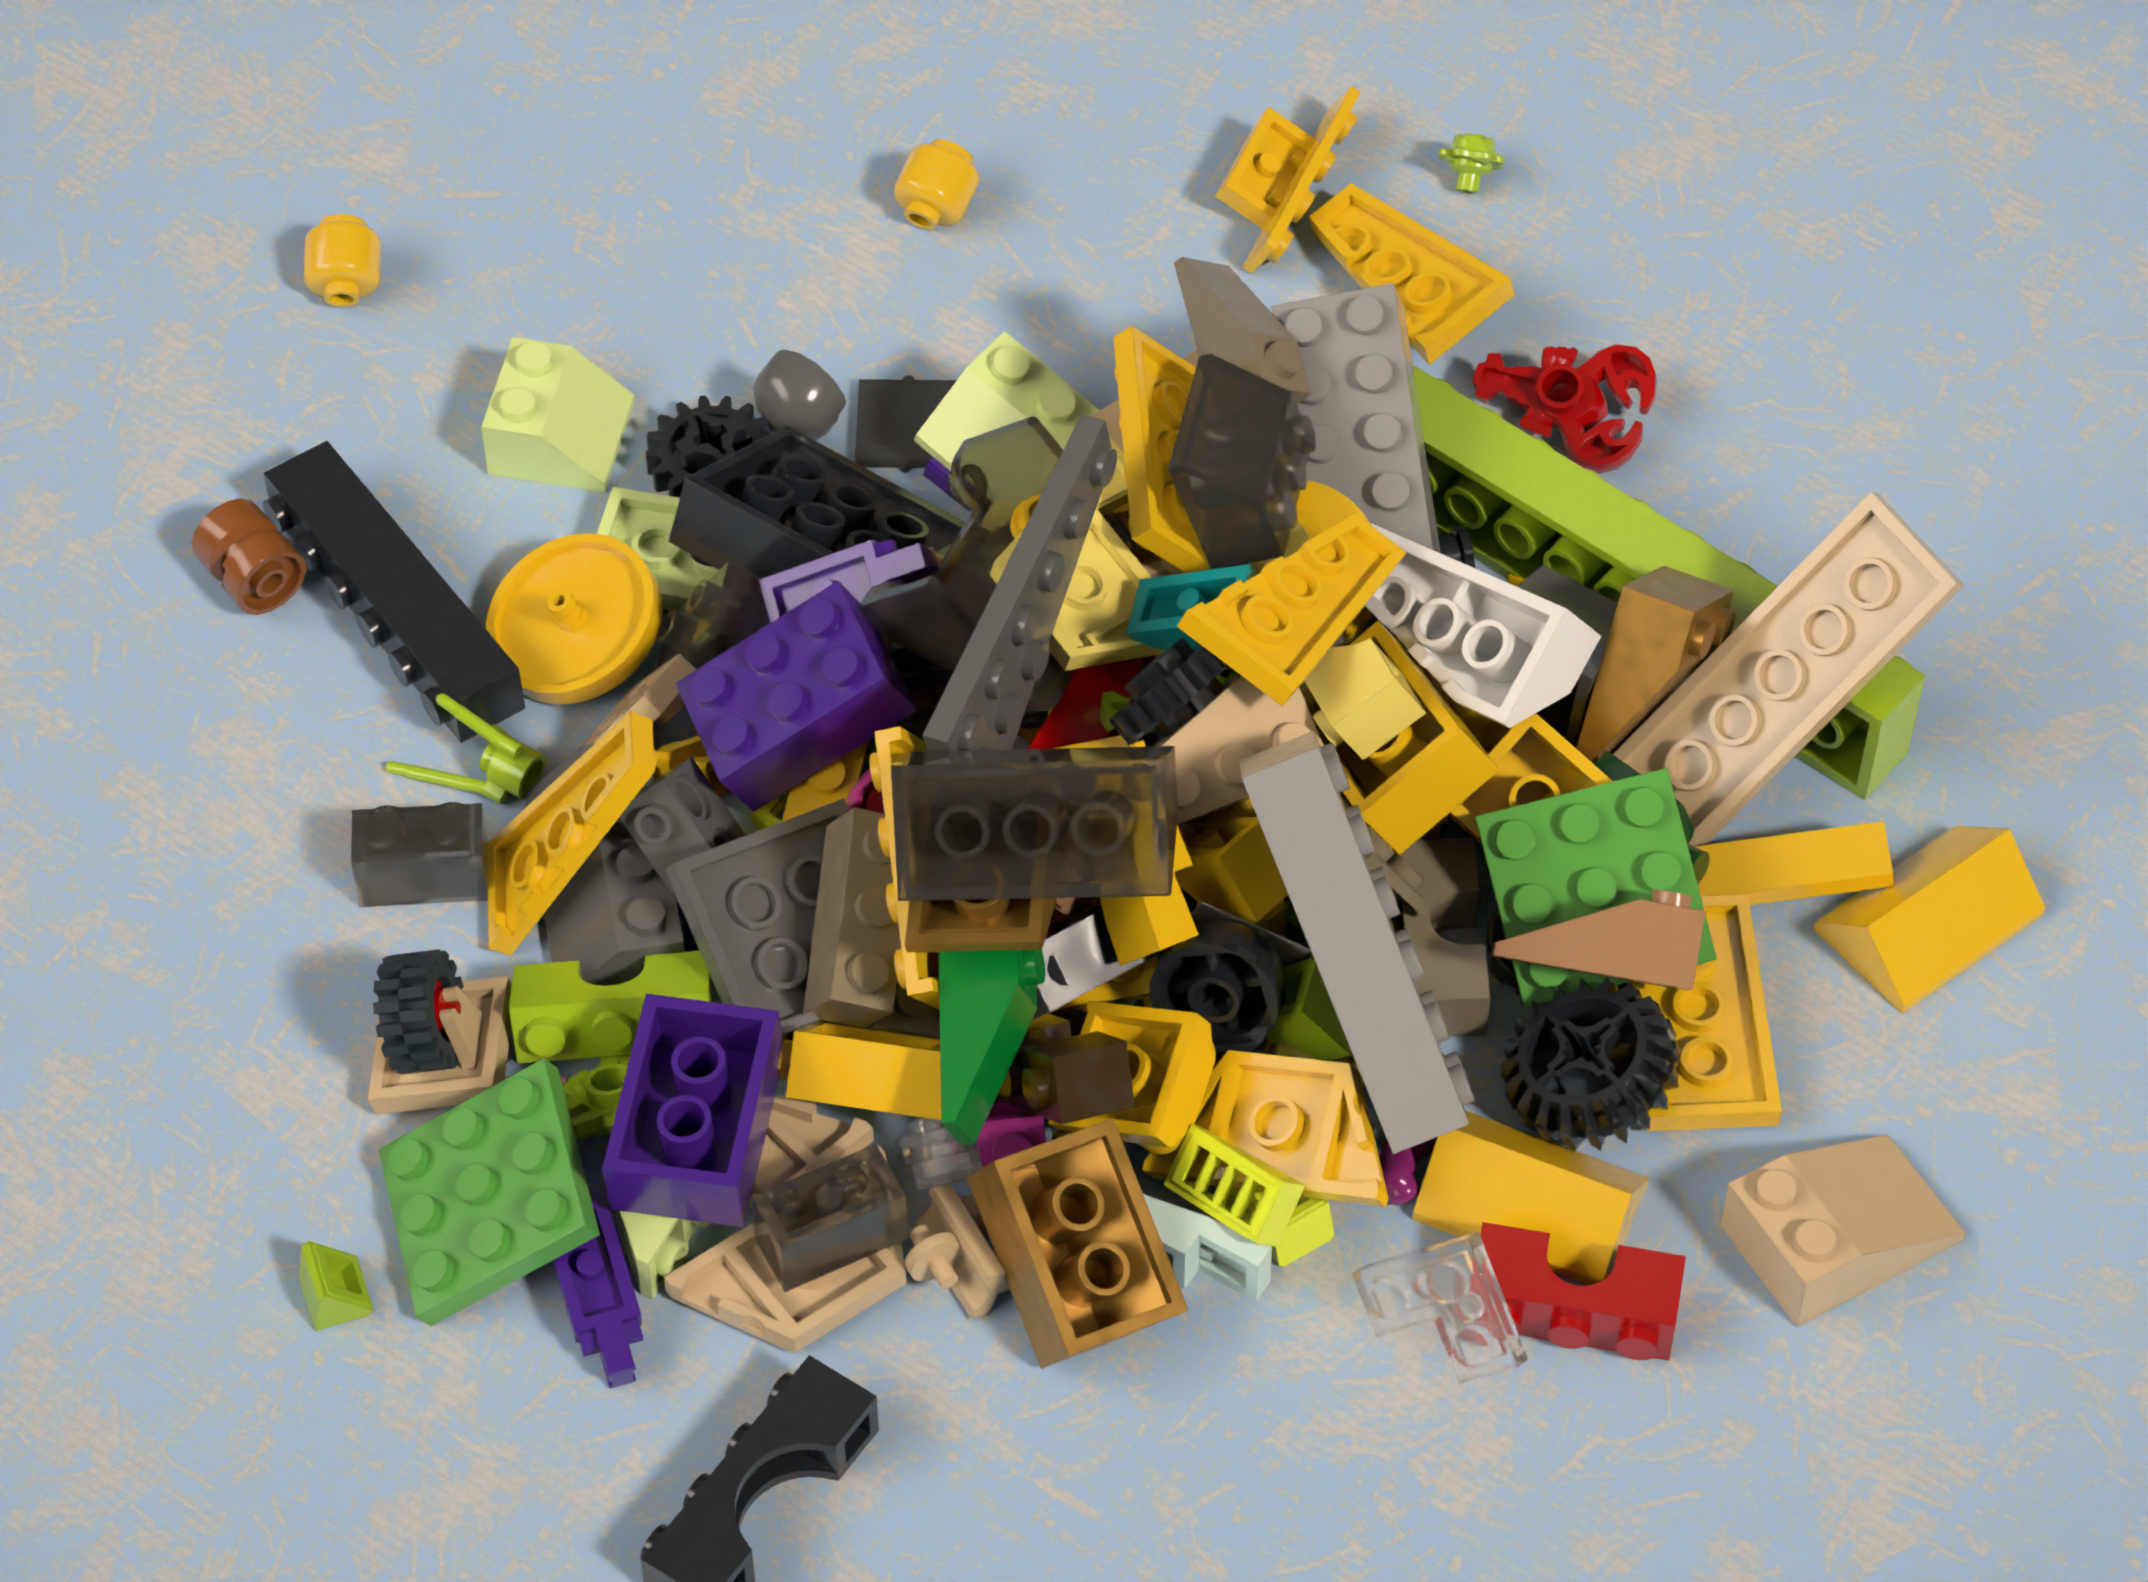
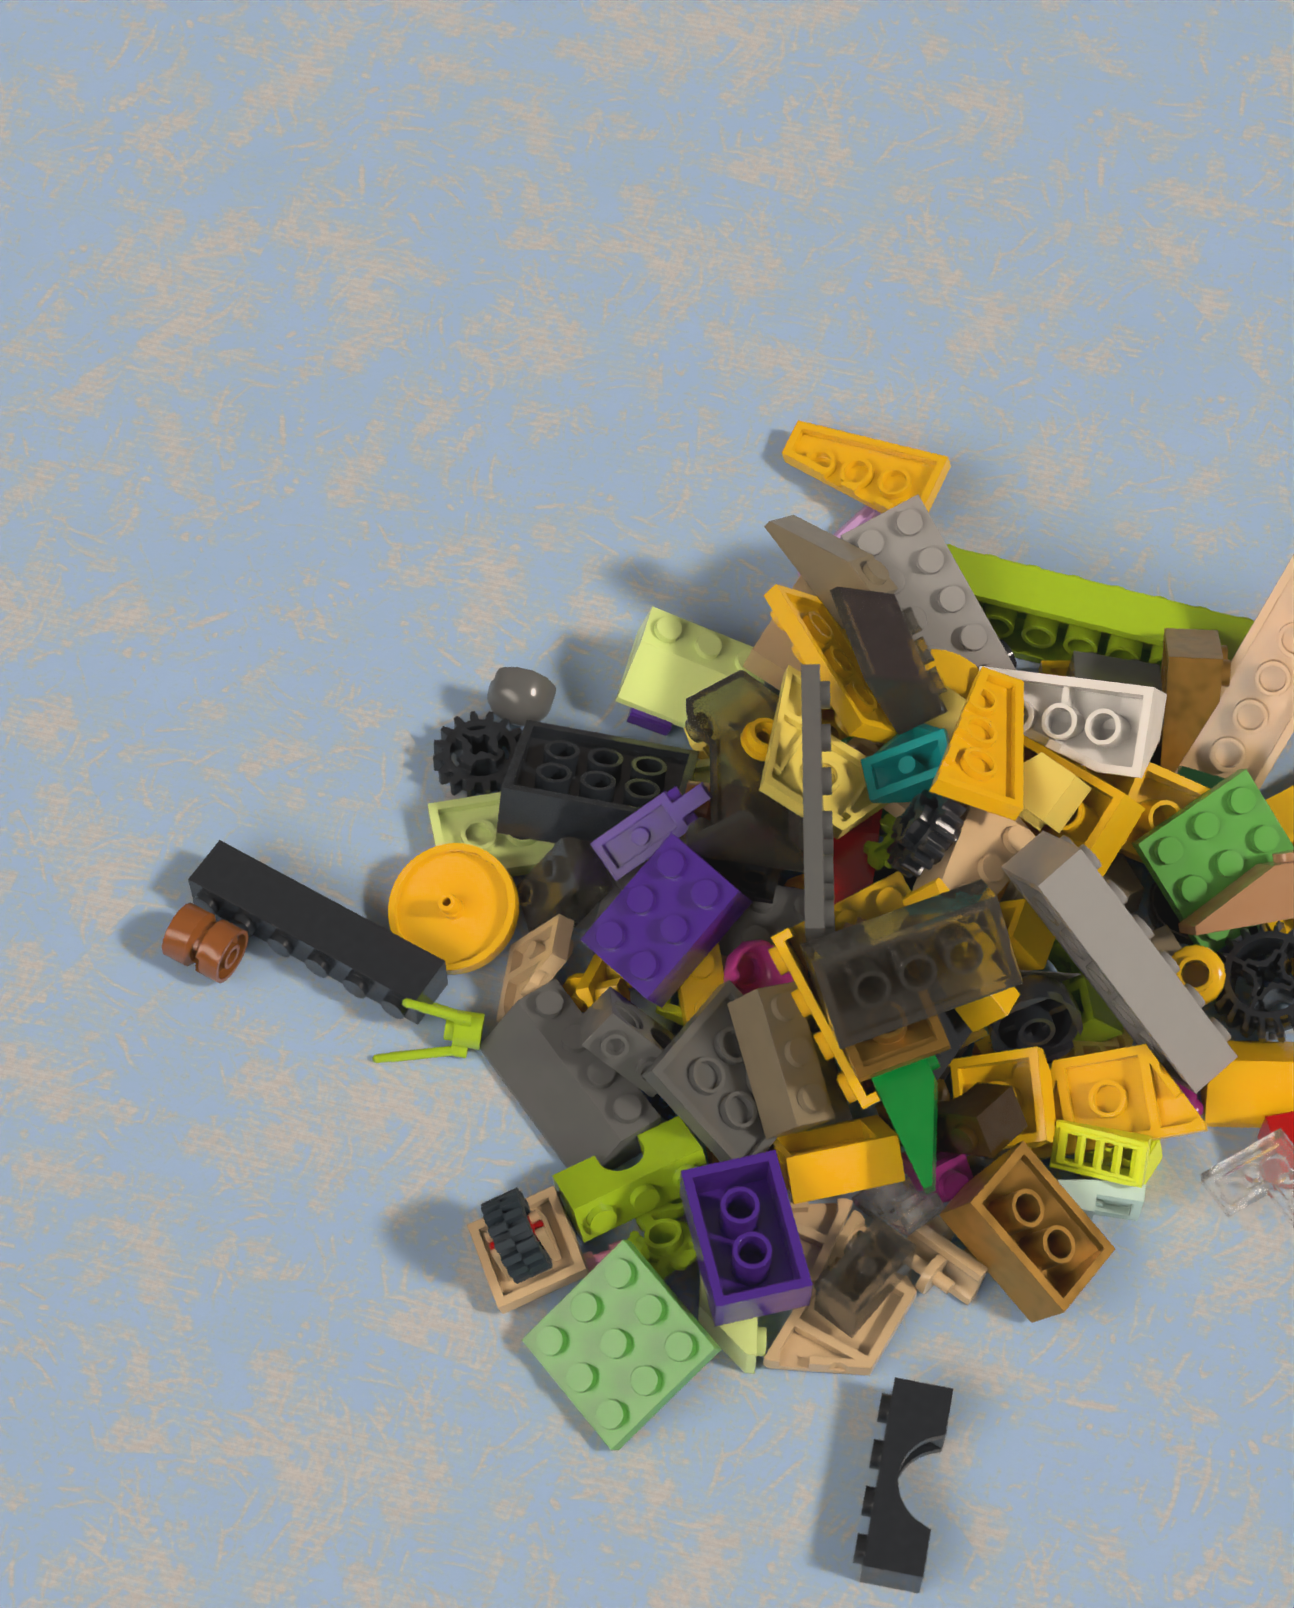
camera: 25 degrees left, 5 degrees up
(332, 1286) = (540, 1451): lime slope -> none
(342, 260) = (151, 701): yellow head -> none
(419, 854) = (439, 1116): clear smoke brick -> none
(554, 417) = (360, 766): yellowish green slope -> none
(561, 828) = (541, 1068): yellow wing -> none
(601, 1298) = (734, 1393): dark purple hinge -> none
(890, 418) = (588, 686): clear smoke piece -> none
(936, 184) = (528, 510): yellow head -> none
(1275, 172) = (748, 427): yellow bracket -> none
(1471, 158) = (864, 377): lime plant -> none
(1480, 1012) = (1201, 970): none -> yellow head
(1573, 399) = (1015, 525): red animal -> none

